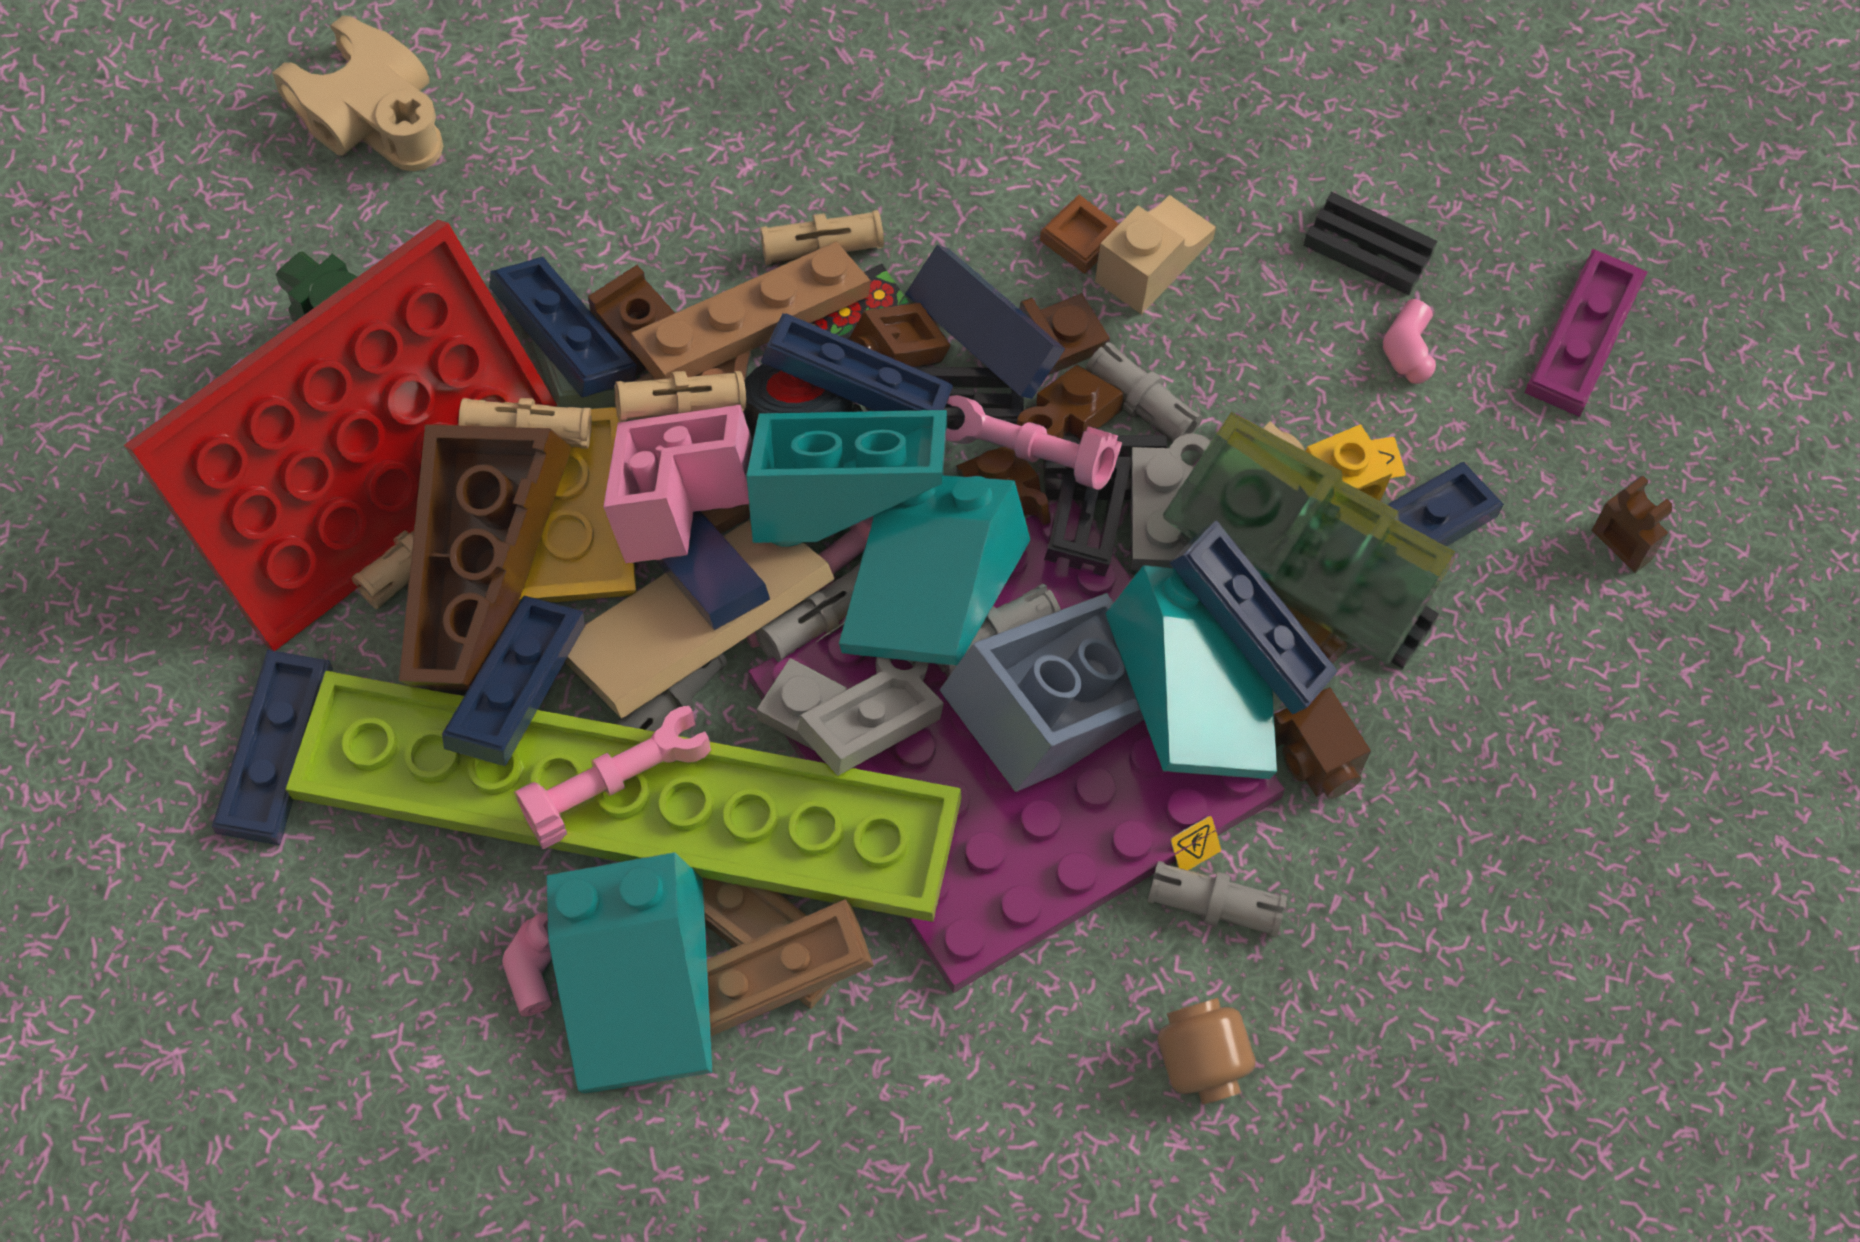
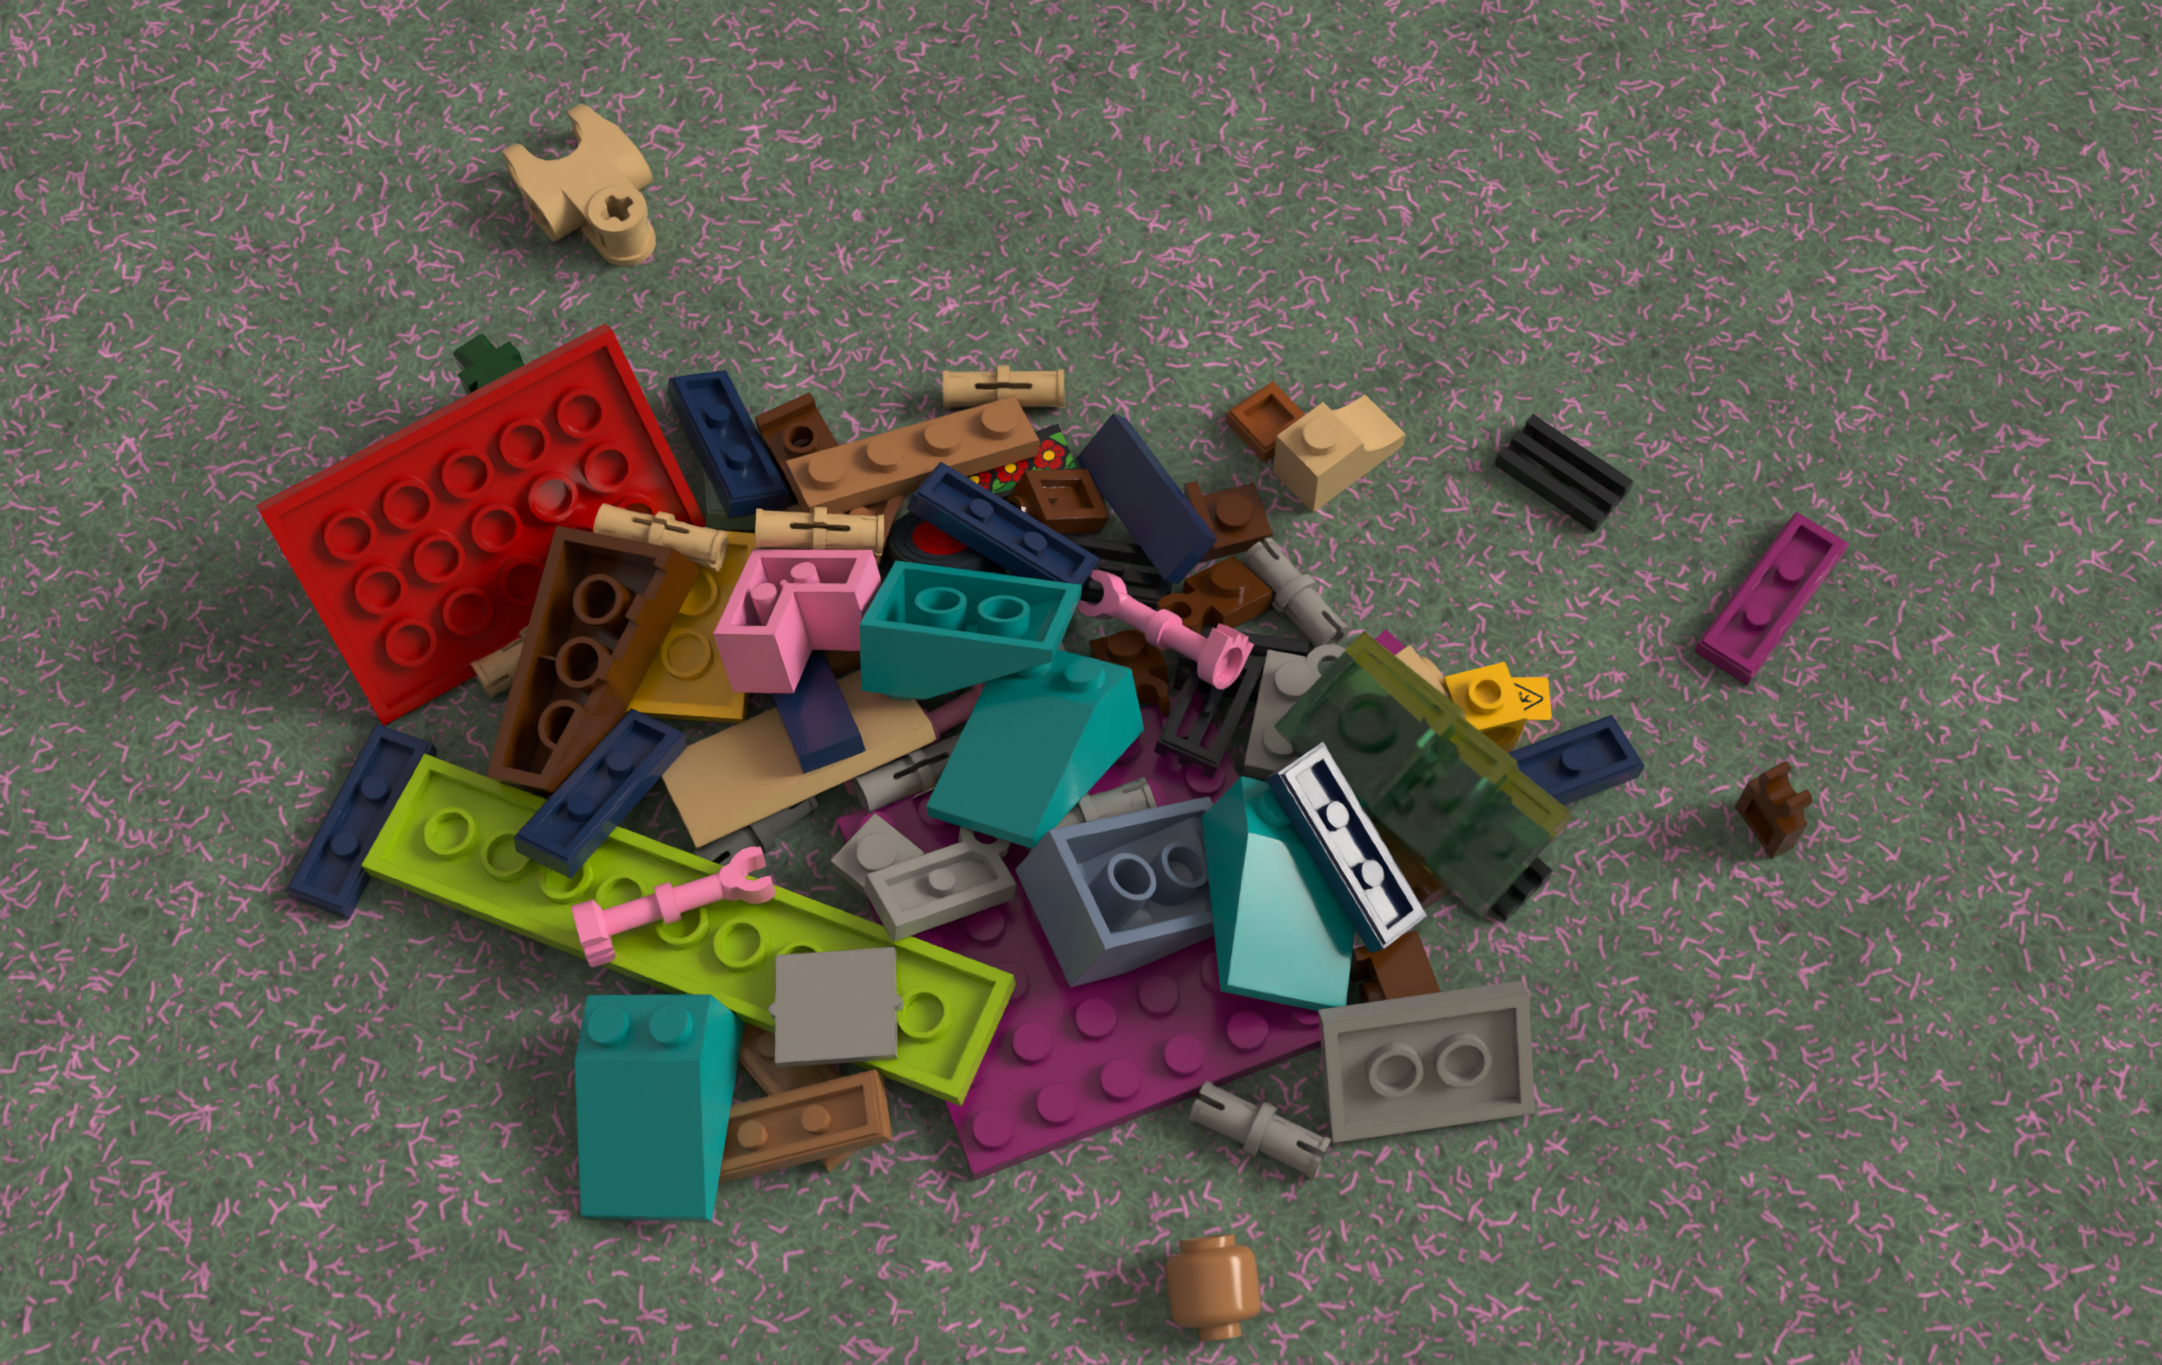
camera: 15 degrees right, 0 degrees up
(525, 963) = (555, 1082): bright pink arm -> none
(795, 846) = (836, 1007): none -> light grey piece
(1200, 850) = (1251, 1077): yellow sticker -> none
(1364, 807) = (1427, 1061): none -> light grey plate
(1405, 345) = (1576, 582): bright pink arm -> none

